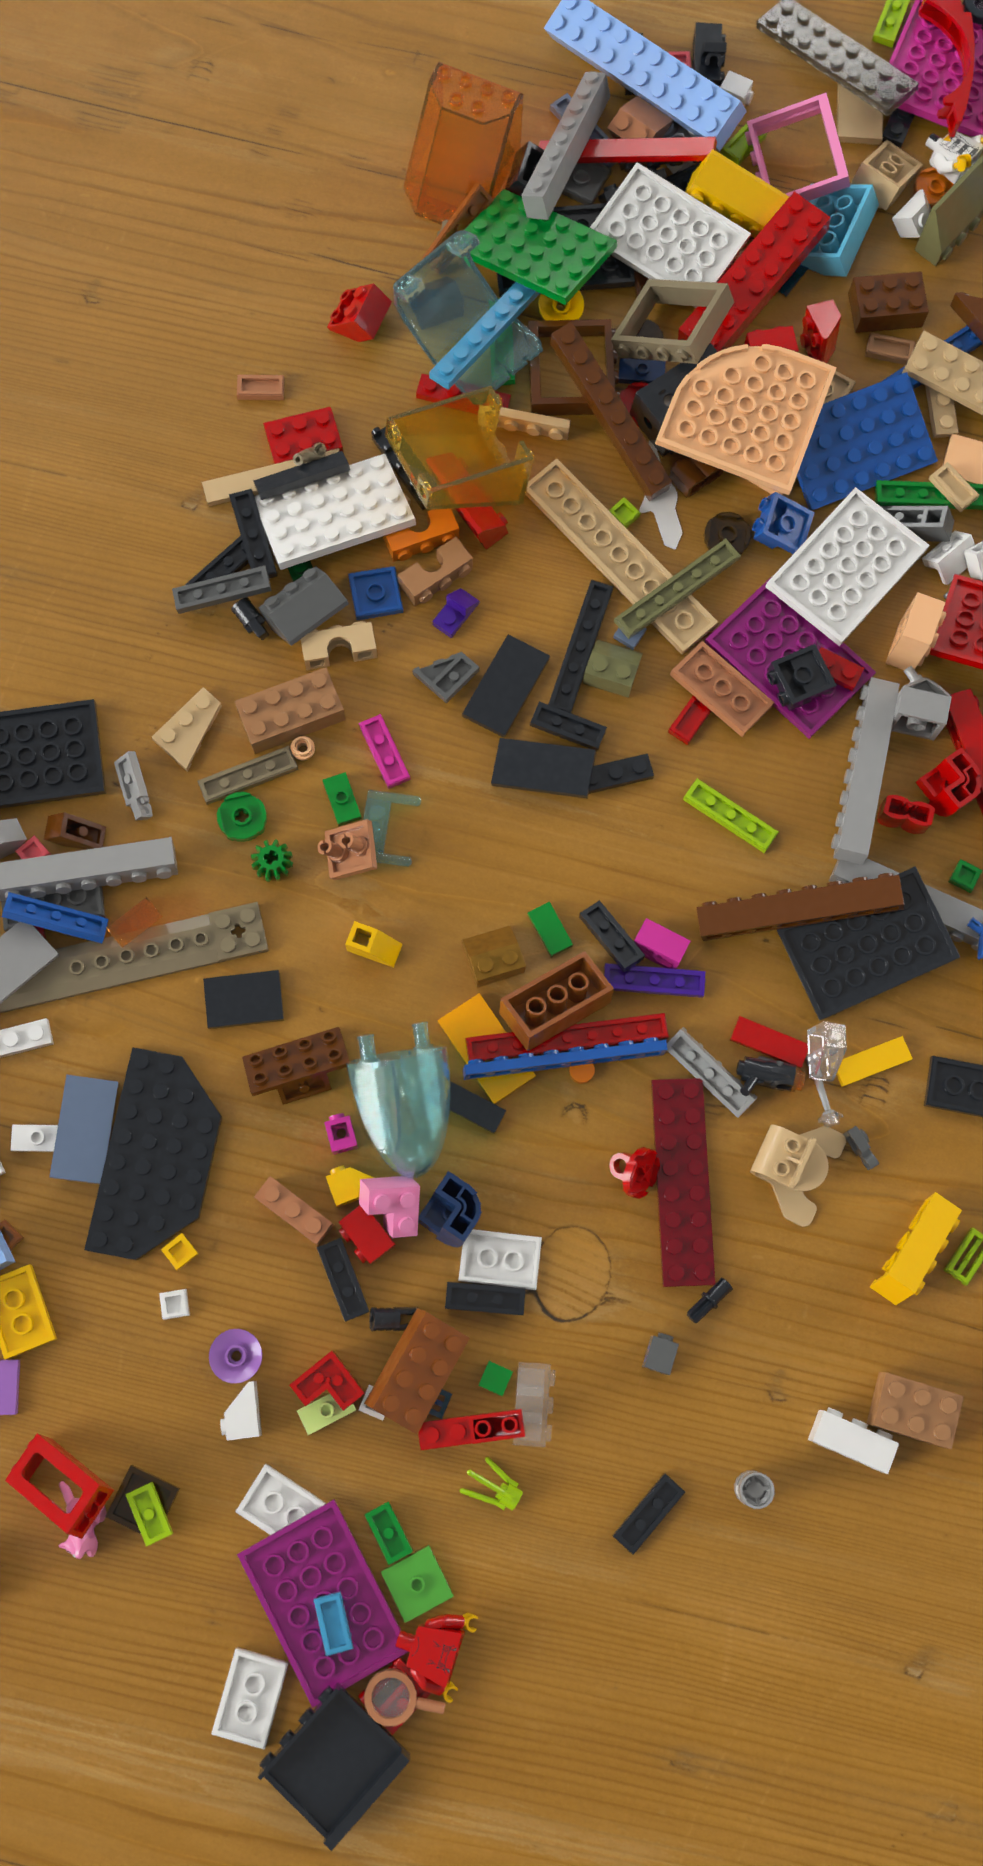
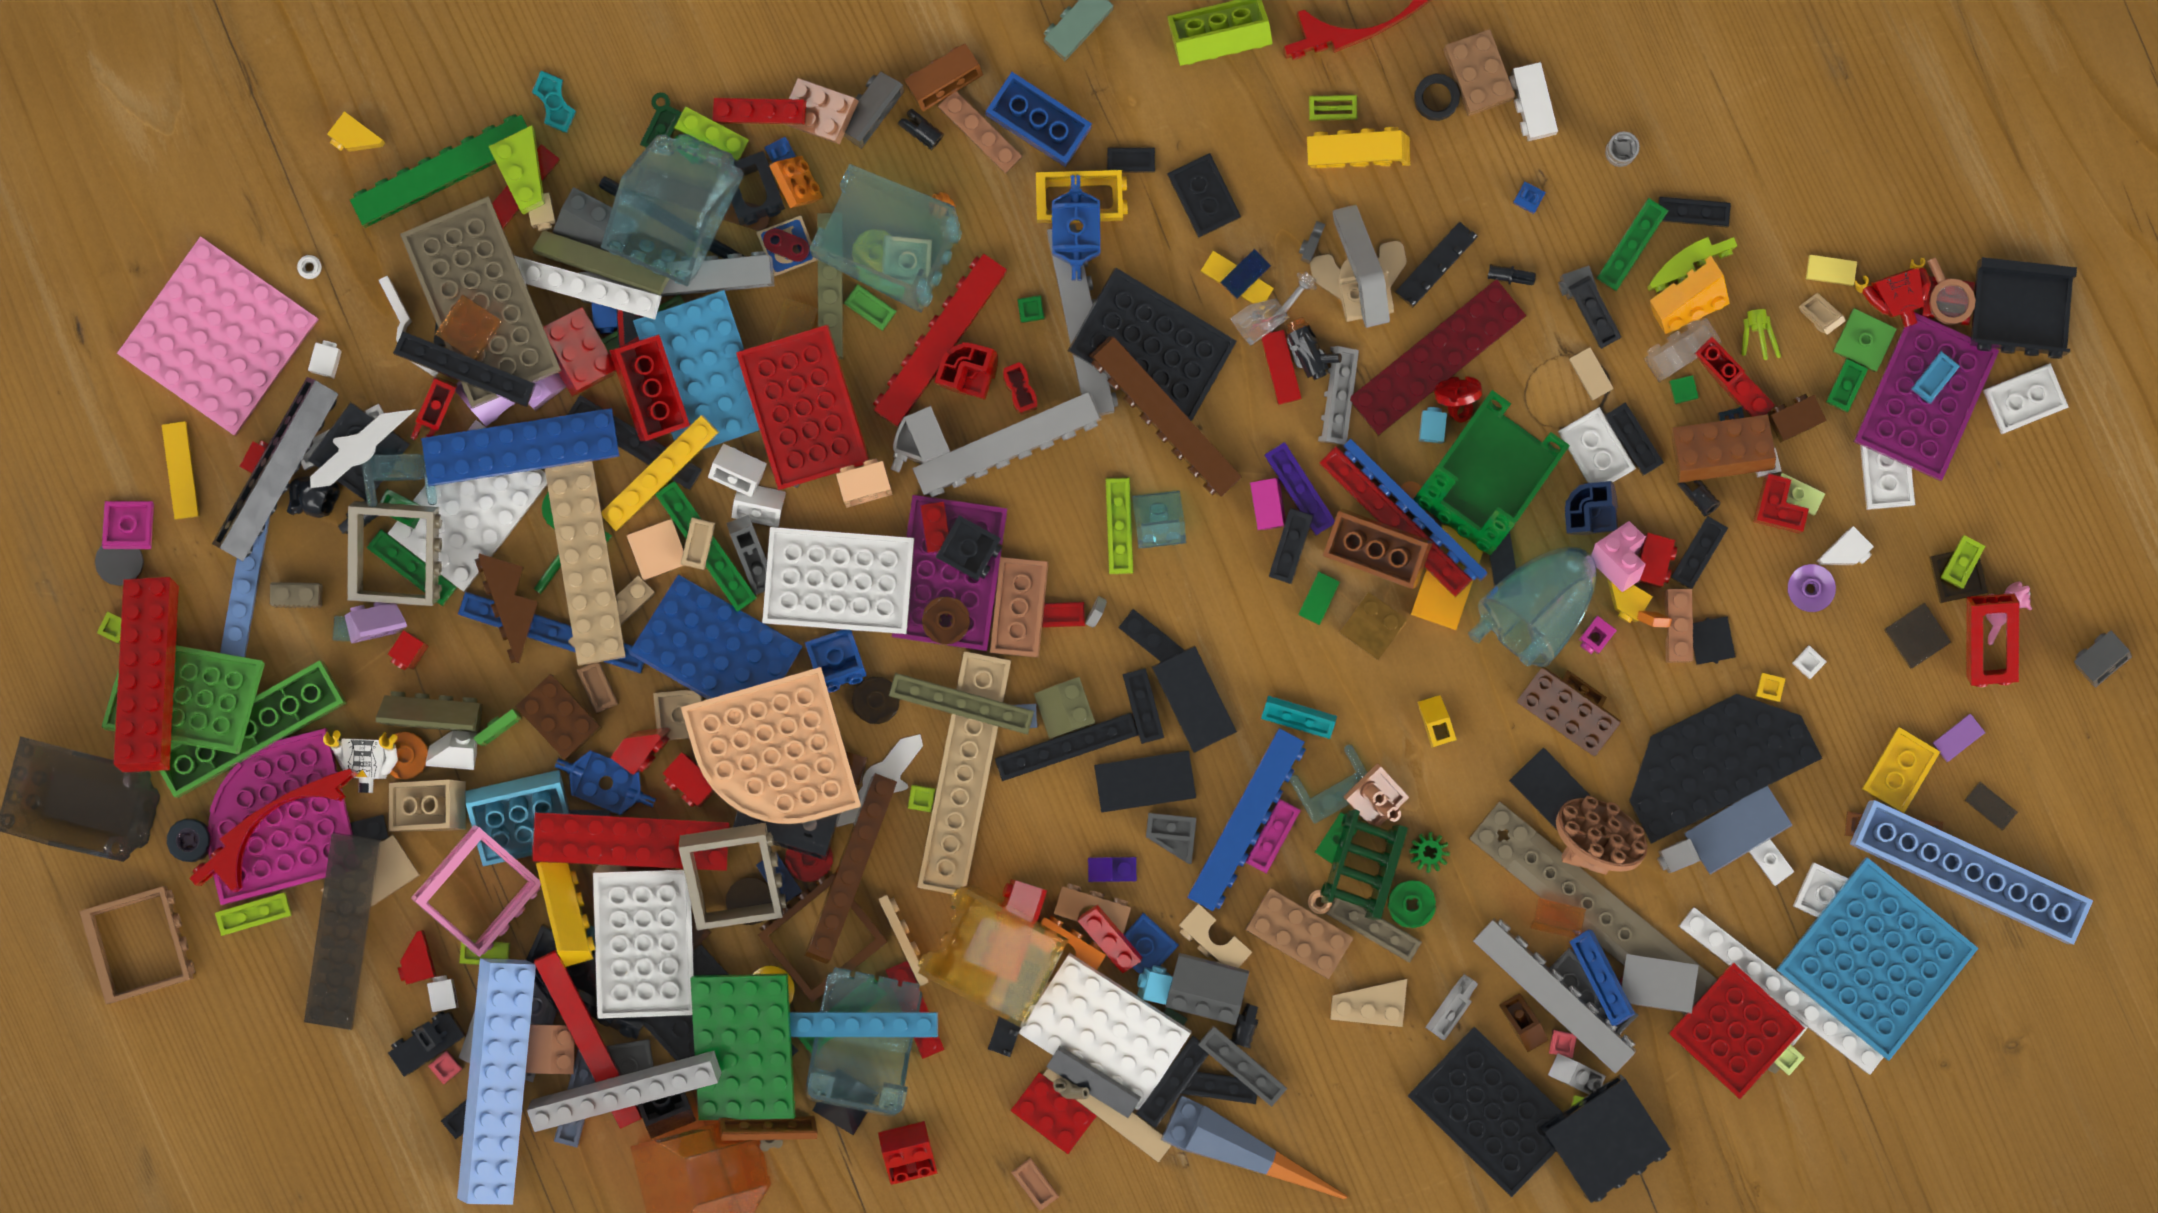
camera: 130 degrees left, 10 degrees up
(102, 1059) = (1678, 856): none -> light grey slope
(120, 1421) = (1917, 635): none -> clear smoke tile
(170, 1003) = (1600, 836): none -> nougat bracket
(189, 532) = (1208, 1134): none -> sand blue plate
(260, 1233) = (1712, 641): none -> black piece
(279, 799) = (1387, 860): none -> dark green fence
(315, 1191) = (1654, 619): none -> orange tile
(339, 571) = (1154, 984): none -> medium azure brick
(393, 1461) = (1796, 418): none -> reddish brown brick
(402, 562) = (1110, 939): none -> plate
(414, 738) = (1246, 819): none -> blue brick
(464, 839) = (1299, 717): none -> teal plate
(470, 1560) = (1822, 314): none -> tan tile
(503, 1603) = (1831, 270): none -> light yellow tile
(549, 1146) = (1489, 475): none -> green windscreen
(570, 1305) = (1591, 374): none -> tan tile
(572, 1447) = (1692, 298): none -> light orange wedge
(609, 1462) = (1684, 261): none -> lime slope
(623, 1348) = (1594, 312): none -> black tile
(626, 1131) = (1432, 425): none -> medium azure brick
(660, 1432) = (1632, 244): none -> green tile
(673, 745) = (1096, 612): none -> light grey tile
(713, 847) = (1159, 519): none -> clear light blue slope
(759, 634) = (931, 619): none -> reddish brown plate
(765, 1242) = (1436, 264): none -> black hinge
(767, 1370) = (1529, 197): none -> blue tile
(773, 91) = (417, 961): none -> red slope
(813, 1166) = (1364, 265): none -> light grey beam
(816, 290) = (585, 780): none -> blue plate
(873, 1069) = (1245, 274): none -> clear blue plate
(913, 247) = (497, 727): none -> bright green plate
(931, 1341) = (1440, 79): none -> black tyre

